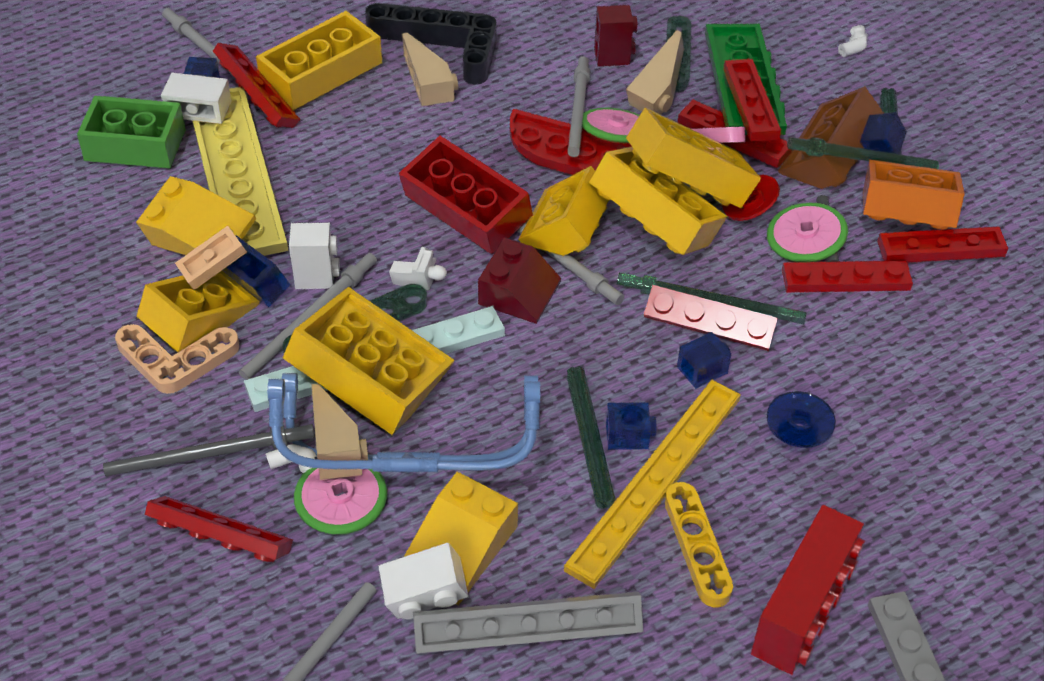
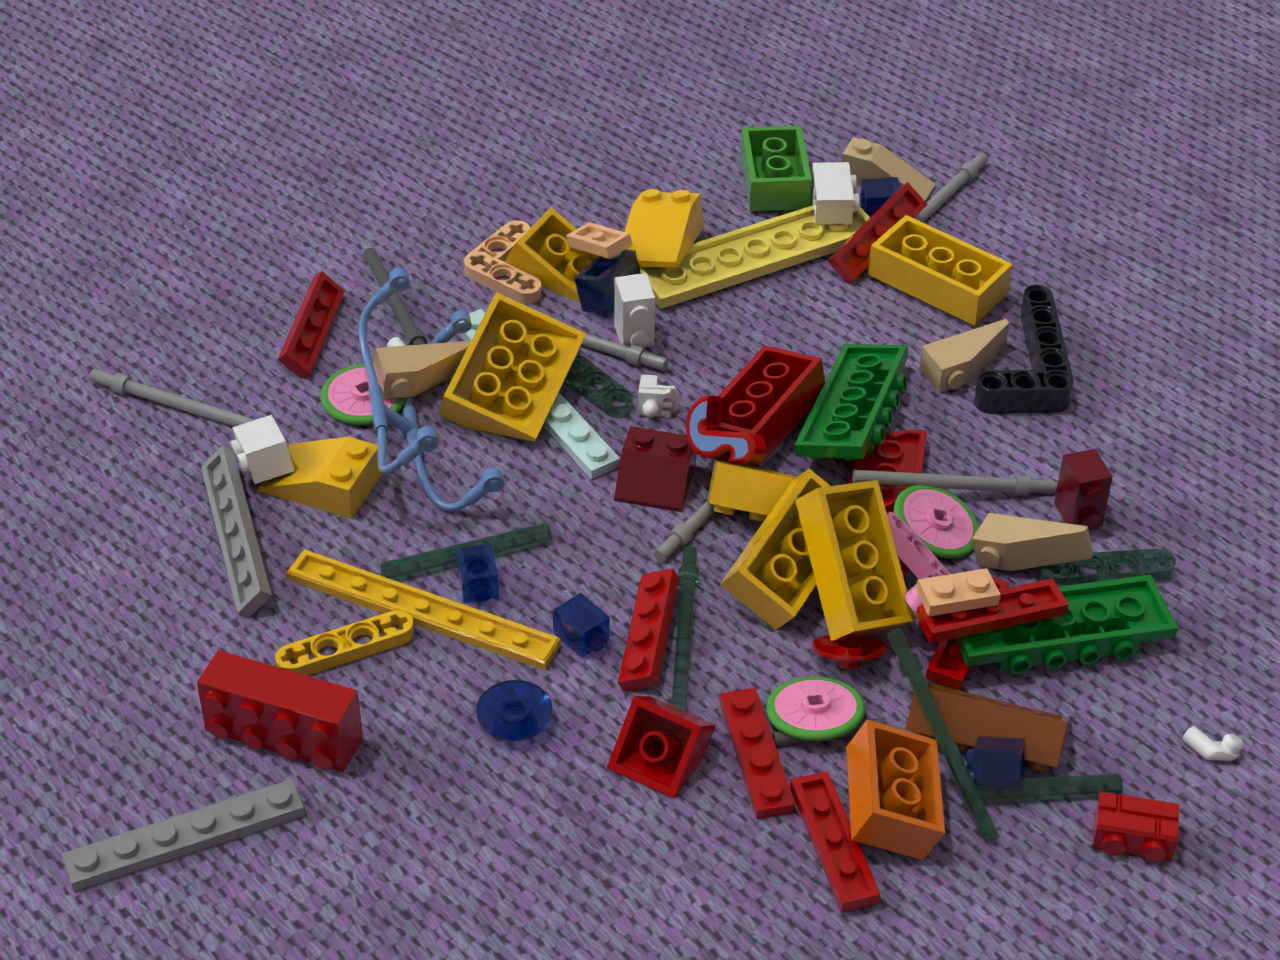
camera: 80 degrees right, 5 degrees down
(151, 71) = (875, 161): none -> tan slope
(493, 138) = (855, 403): none -> green plate
(528, 217) = (708, 442): none -> red animal
(743, 105) = (957, 592): none -> light nougat plate
(845, 327) = (660, 745): none -> red slope
(933, 90) = (1135, 826): none -> red brick

